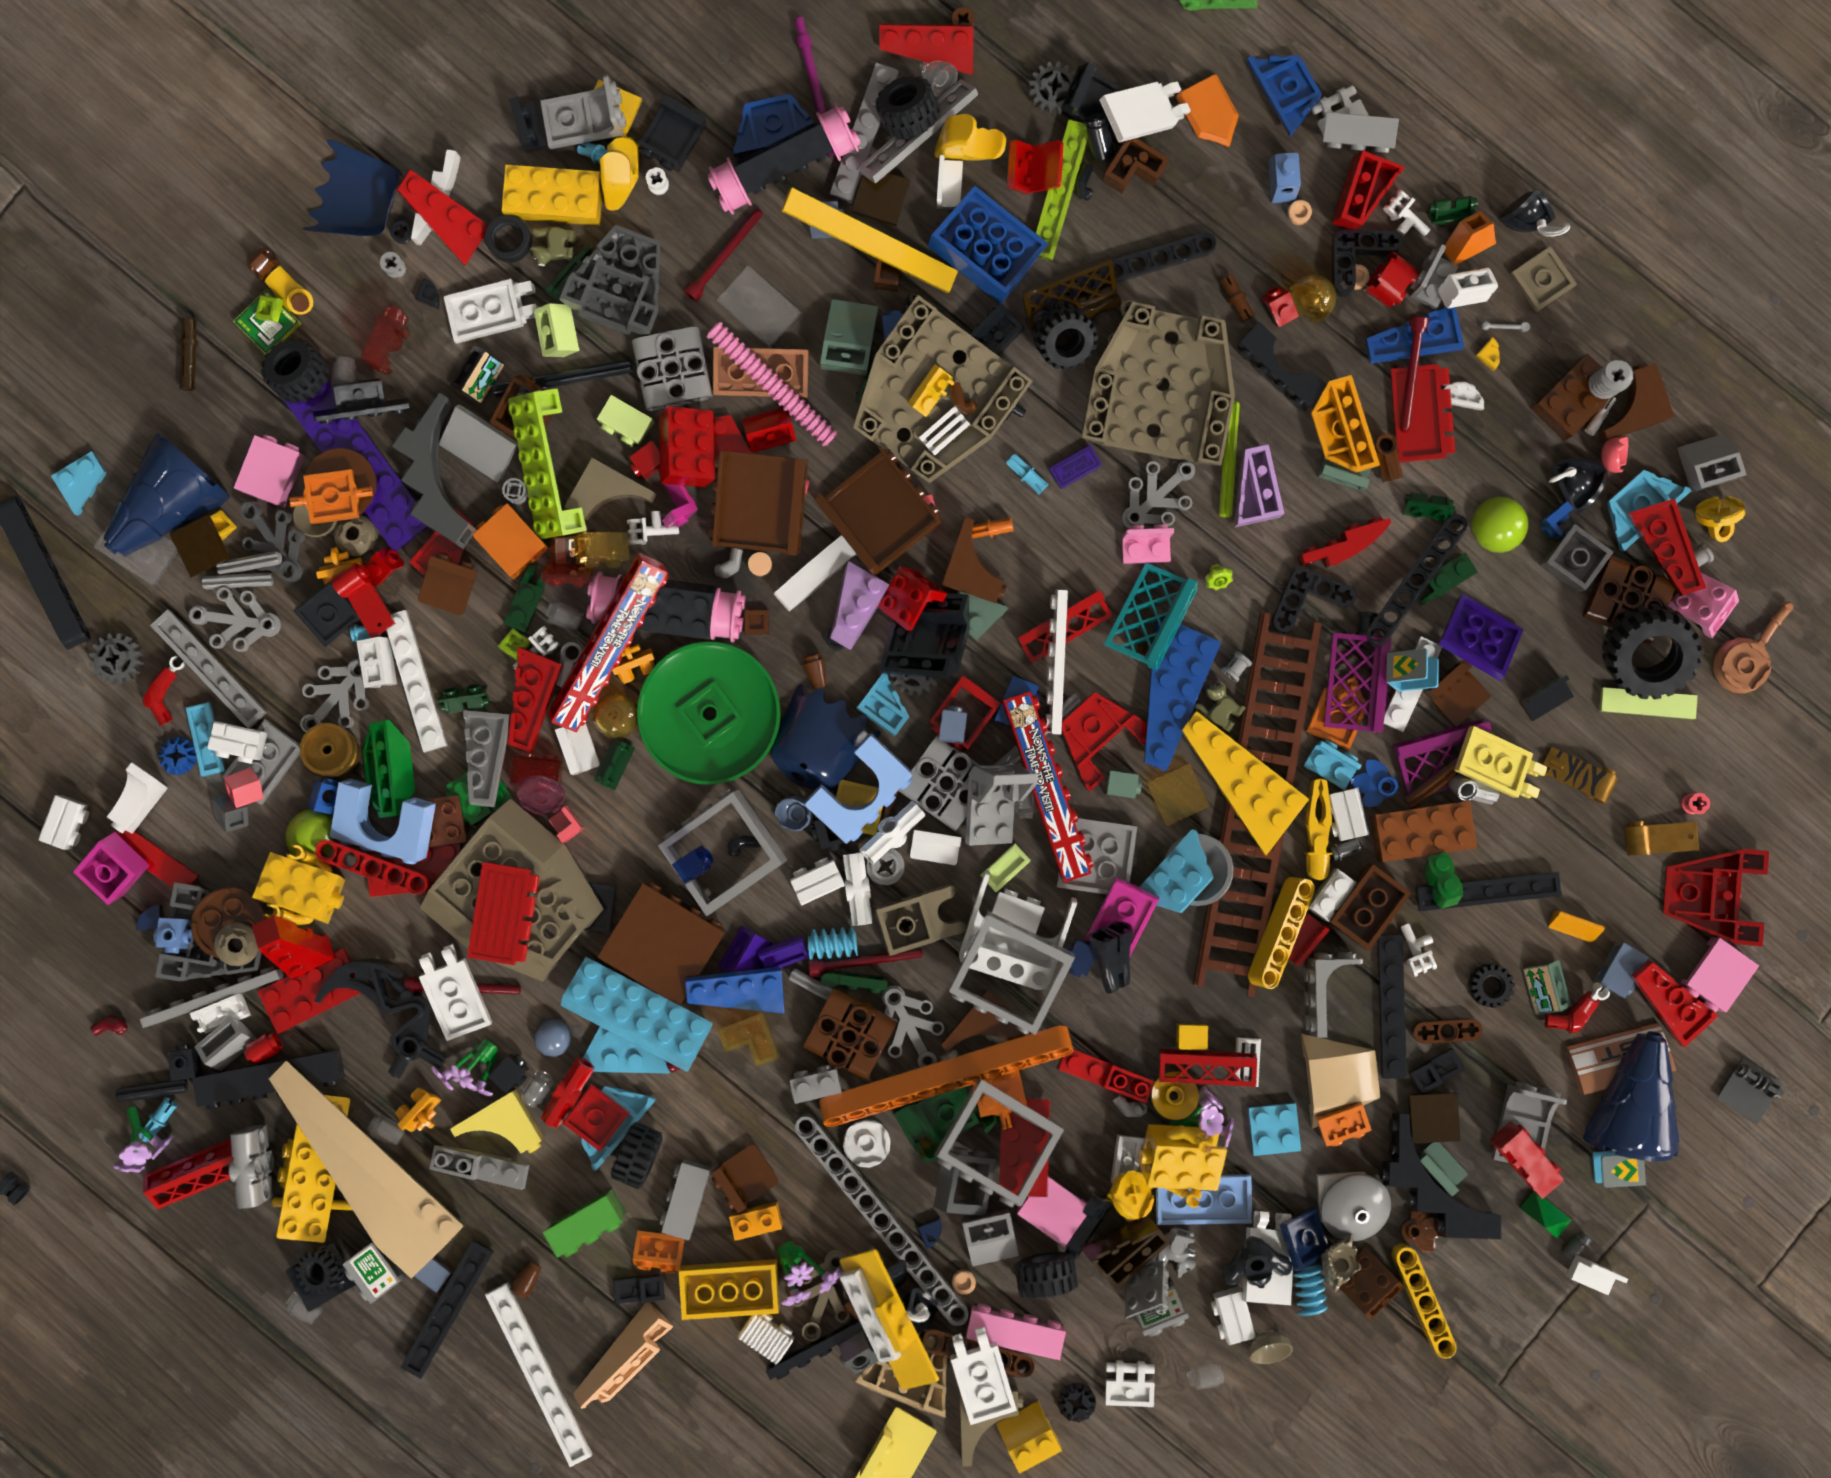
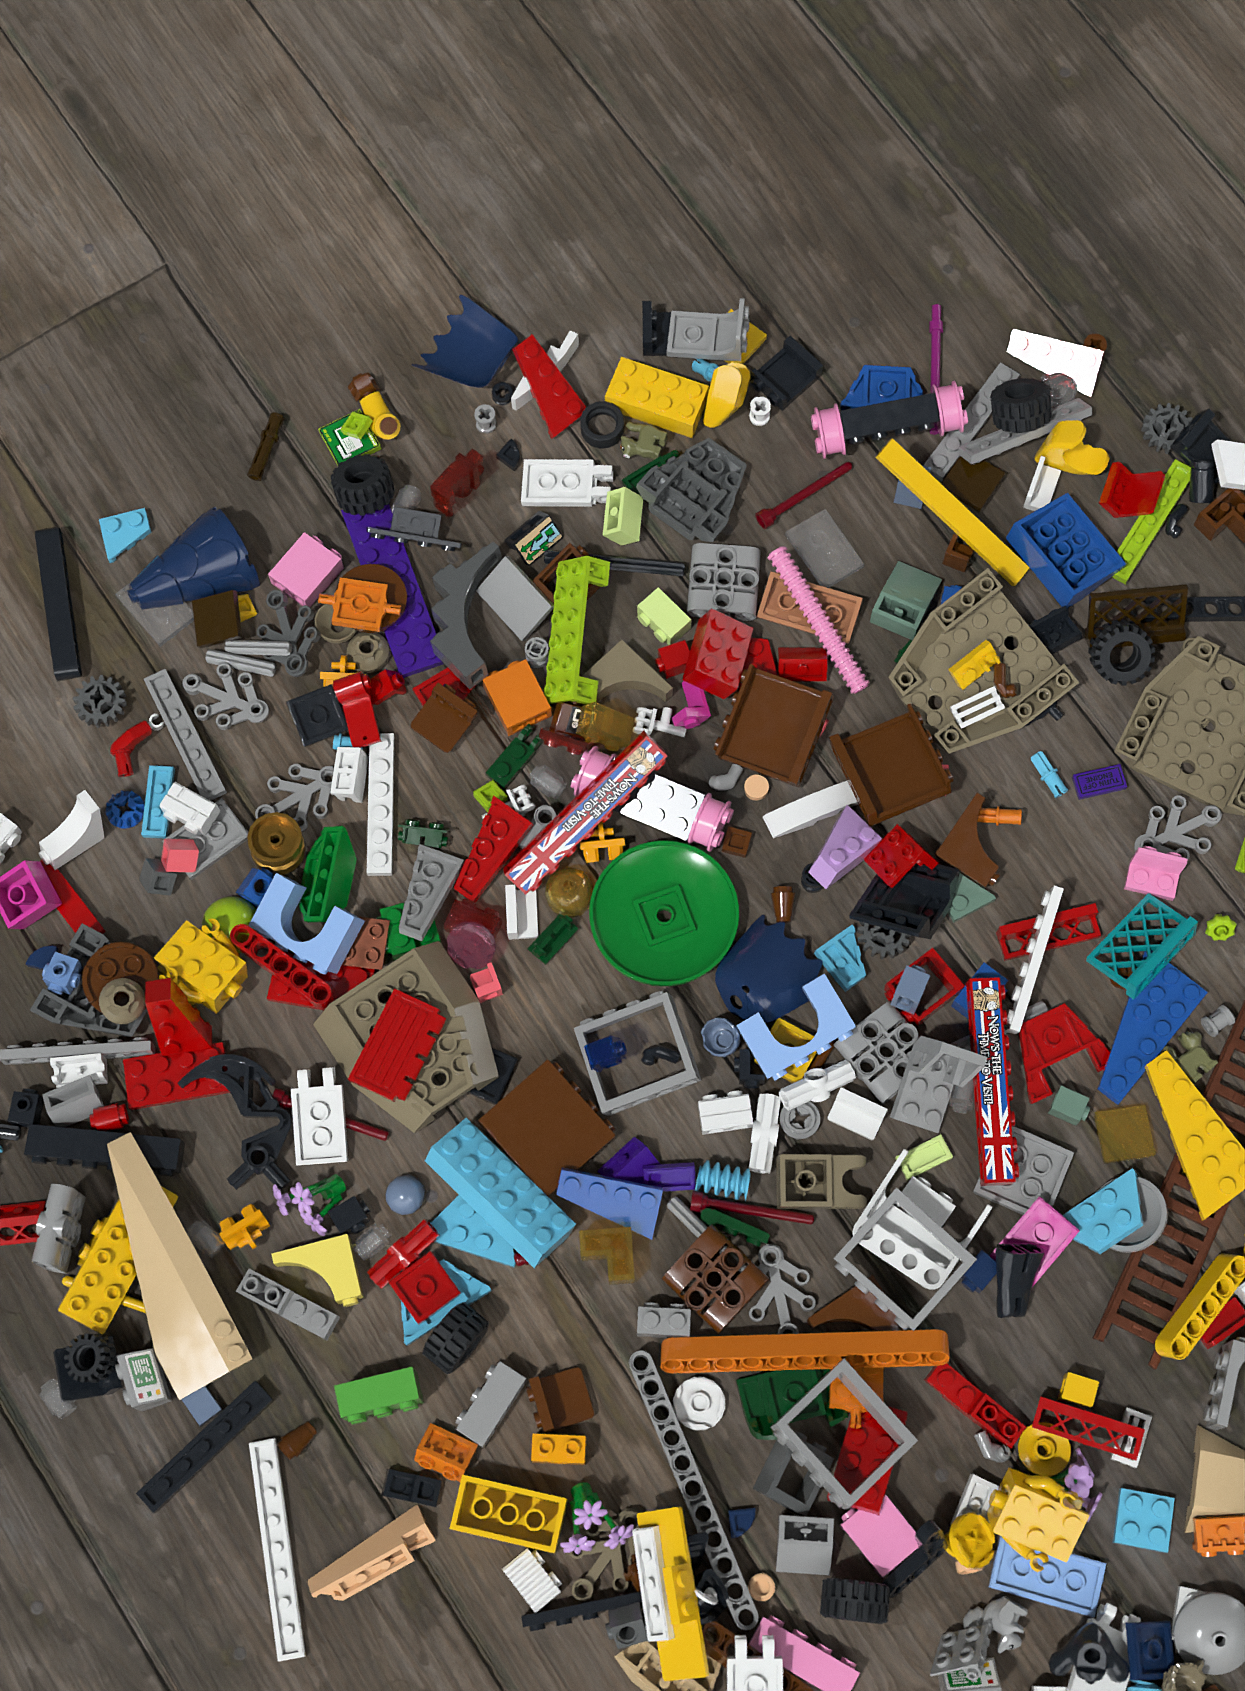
camera: 25 degrees right, 15 degrees down
(1126, 1250) = (949, 1601): dark brown wedge -> none

